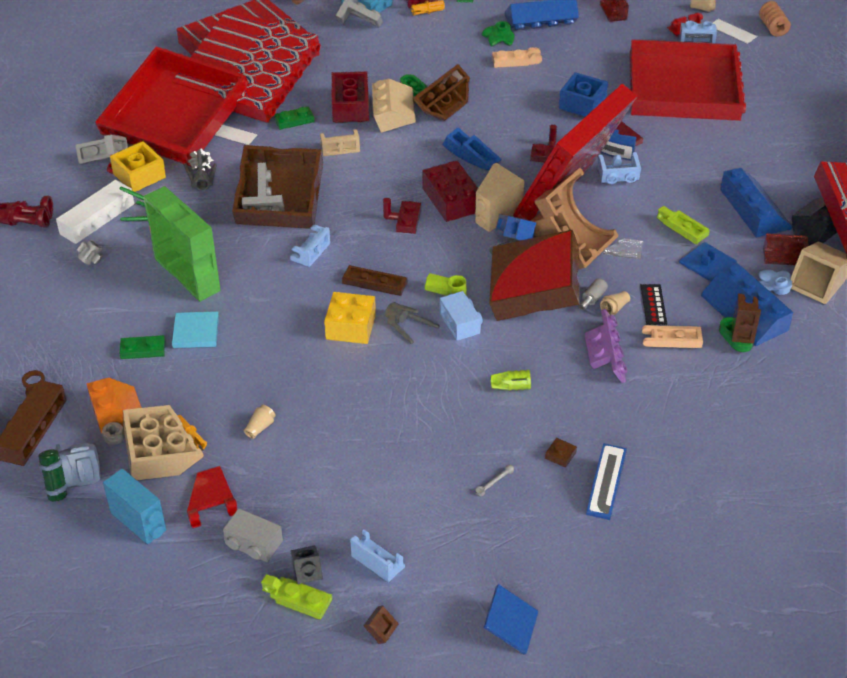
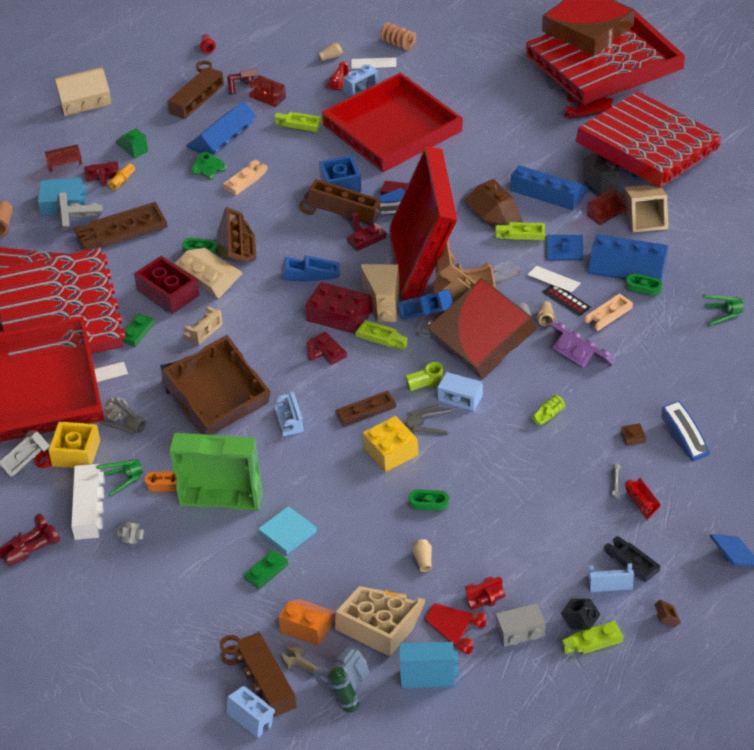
camera: 40 degrees left, 0 degrees up
(62, 427) = (297, 652): none -> dark tan bar
(110, 428) = (332, 633): light grey bush -> none
(262, 487) = (485, 593): none -> red hips
(265, 200) = (210, 397): light grey bracket -> none
(325, 386) = (428, 500): none -> green plate
(379, 41) = (121, 226): none -> reddish brown hinge
(417, 557) = (627, 553): none -> black hinge
(458, 232) = (381, 335): none -> lime hinge
(490, 516) = (642, 497): none -> red hinge
(552, 107) = (341, 201): none -> reddish brown hinge
(610, 39) = (298, 121): none -> lime hinge
(664, 280) = (554, 279): none -> white sticker
(683, 188) = (493, 203): none -> reddish brown wedge
(745, 320) = (650, 268): reddish brown hinge -> none
(777, 282) = (624, 230): light blue plate -> none
(798, 405) = (733, 305): none -> green plant

